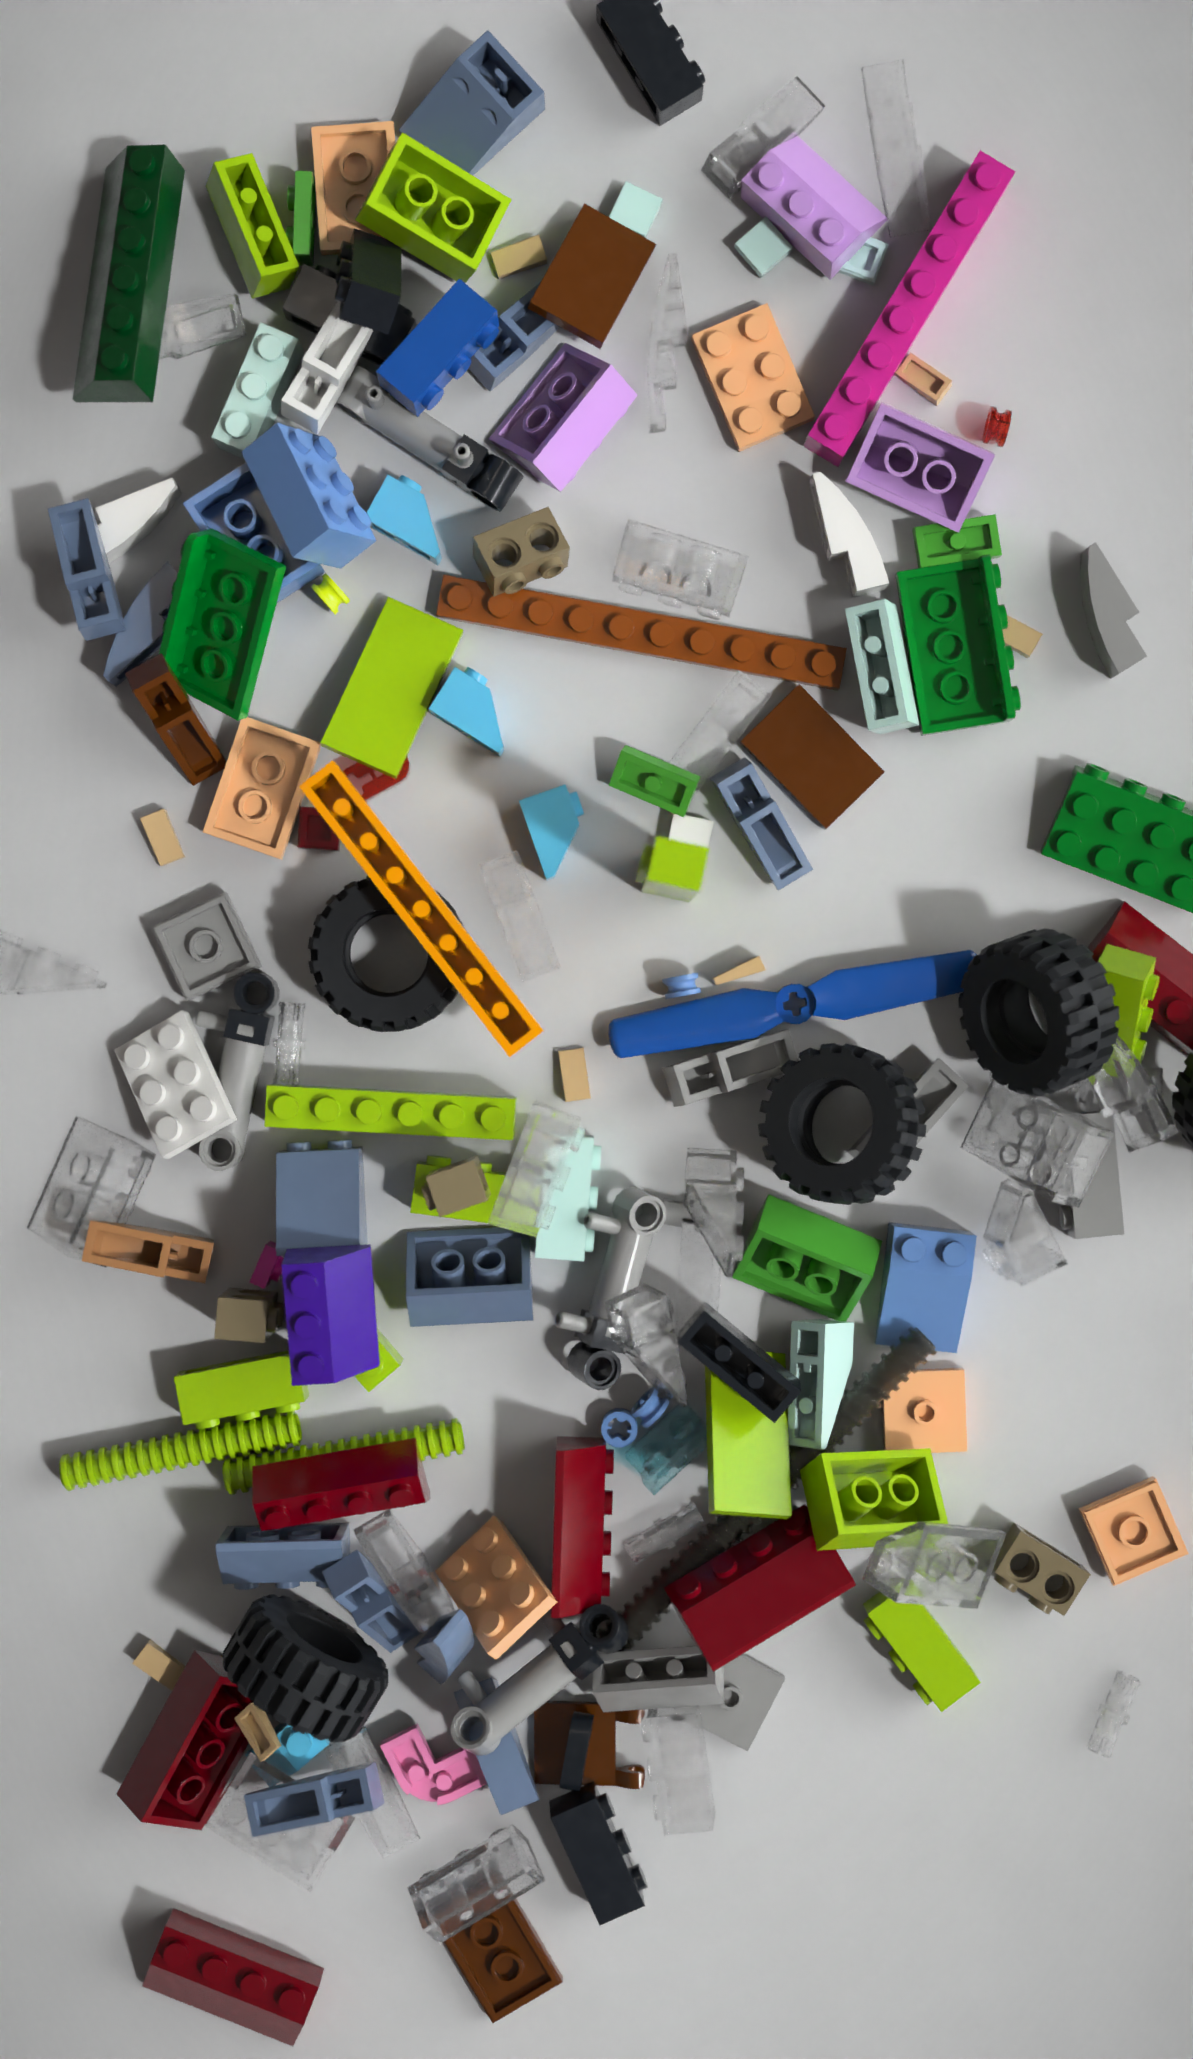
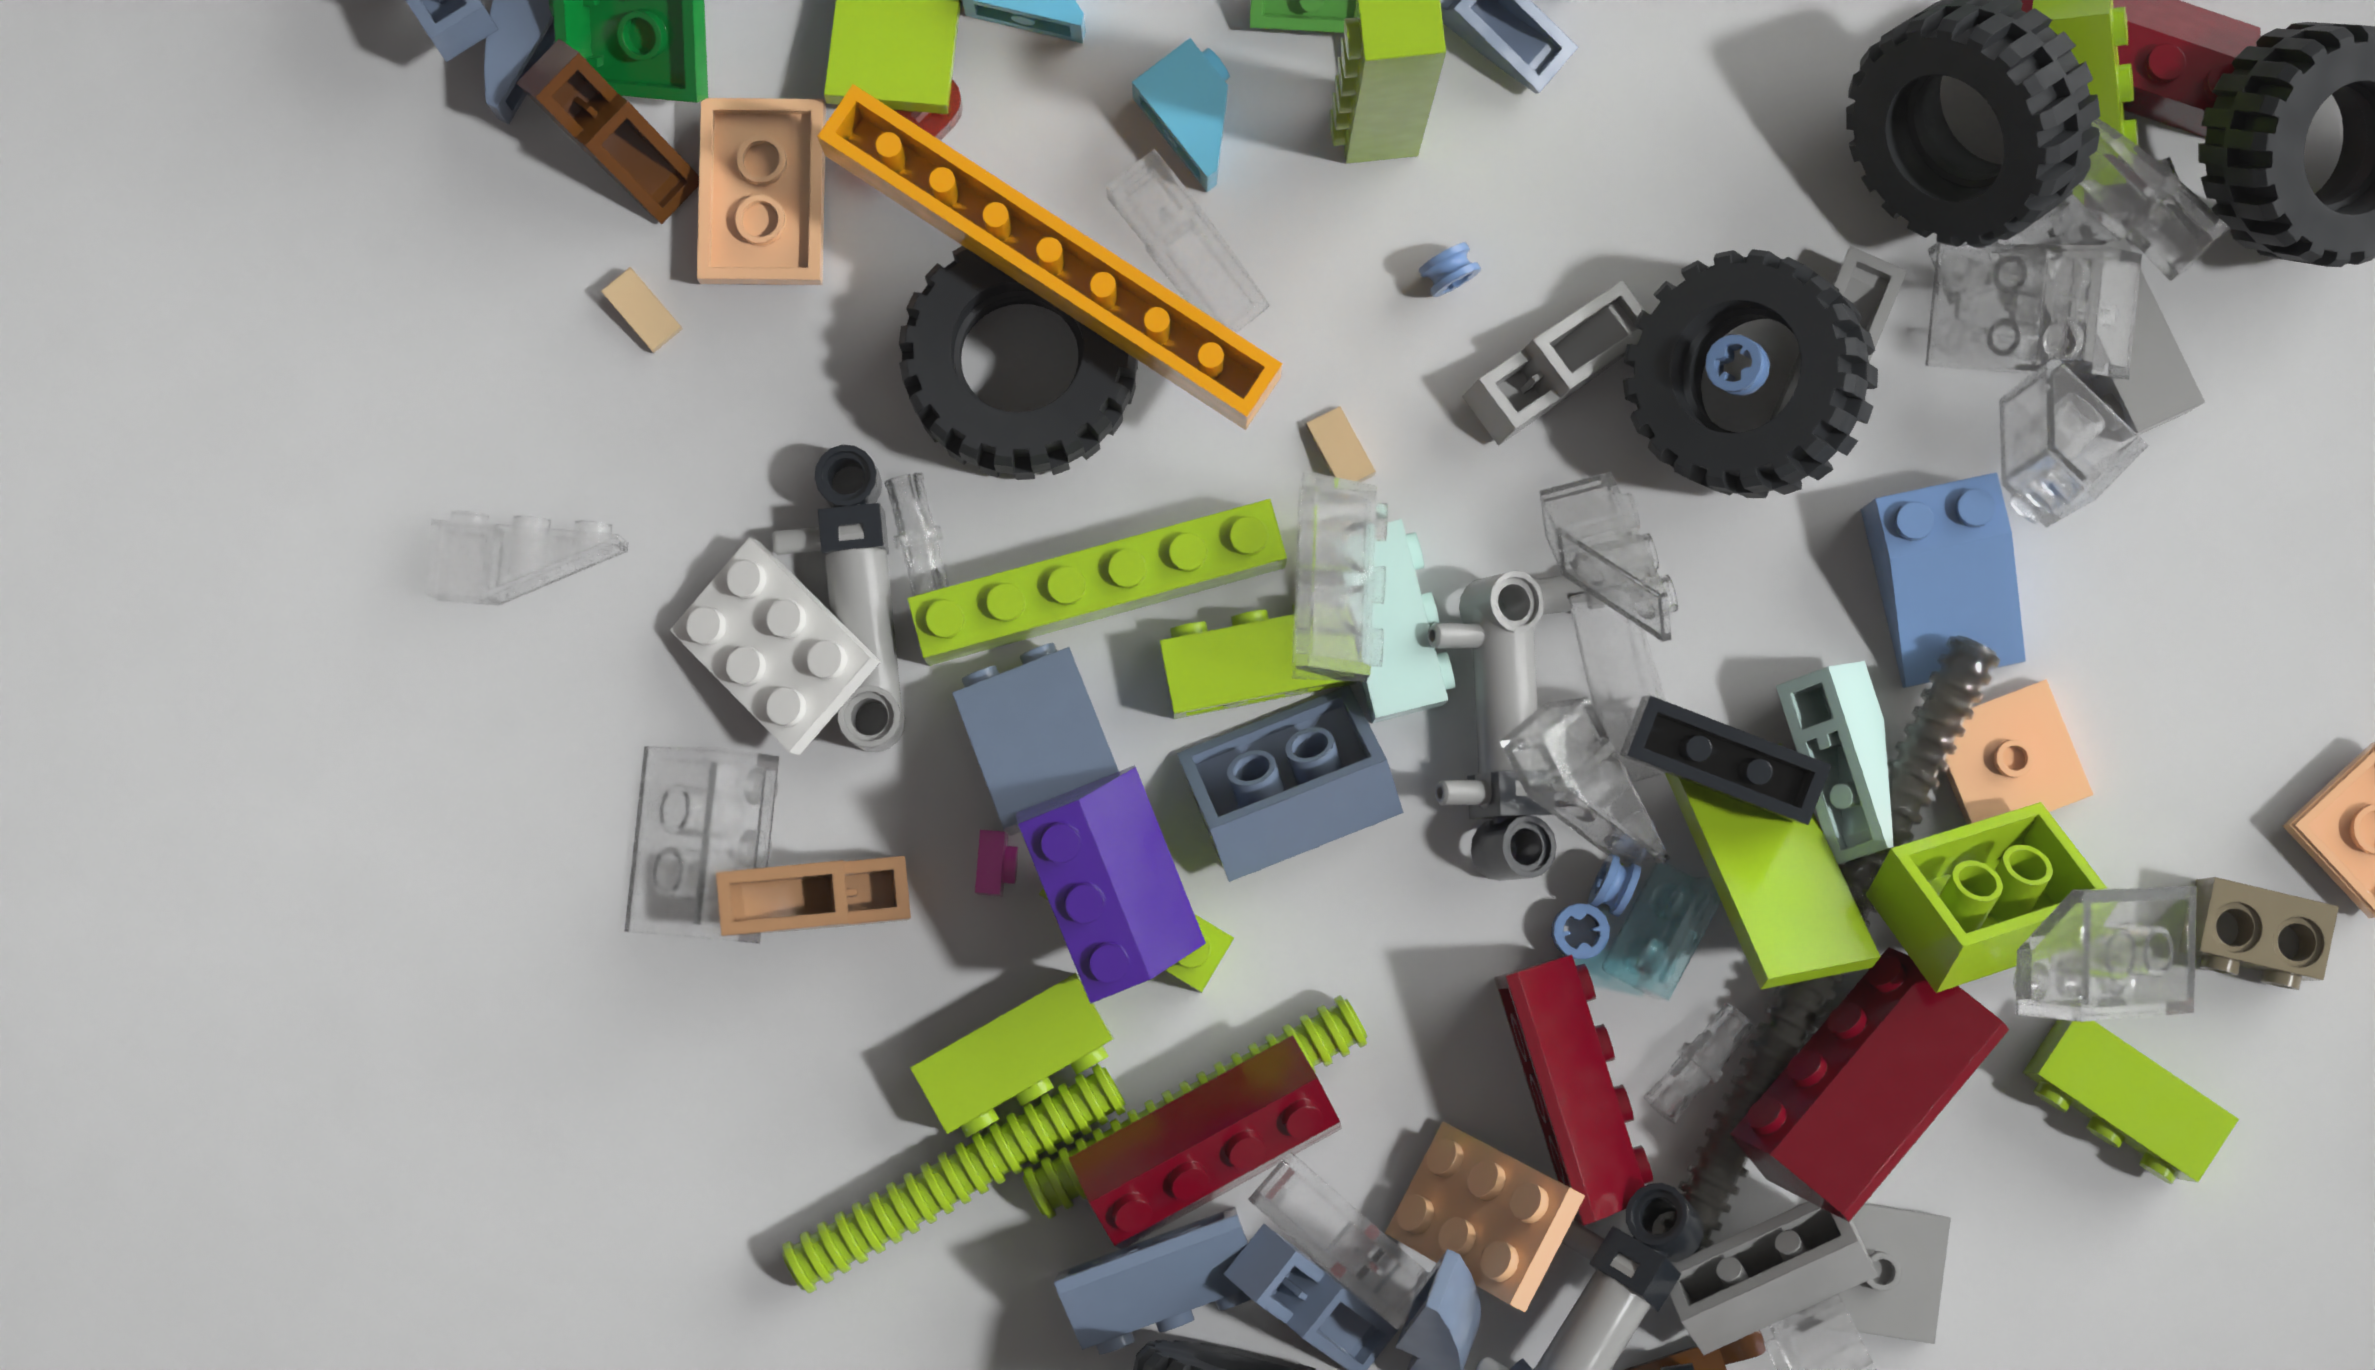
camera: 20 degrees left, 5 degrees down
(206, 946) = (754, 439): light grey plate -> none
(248, 1315) = (989, 939): dark tan brick -> none
(315, 832) = (861, 224): dark red tile -> none
(456, 1186) = (1230, 640): dark tan brick -> none
(745, 969) = (1535, 216): tan piece -> none
(752, 1012) = (1672, 212): blue piece -> none
(807, 1259) = (1766, 595): bright green slope -> none
(835, 1134) = (1723, 353): none -> medium blue bush

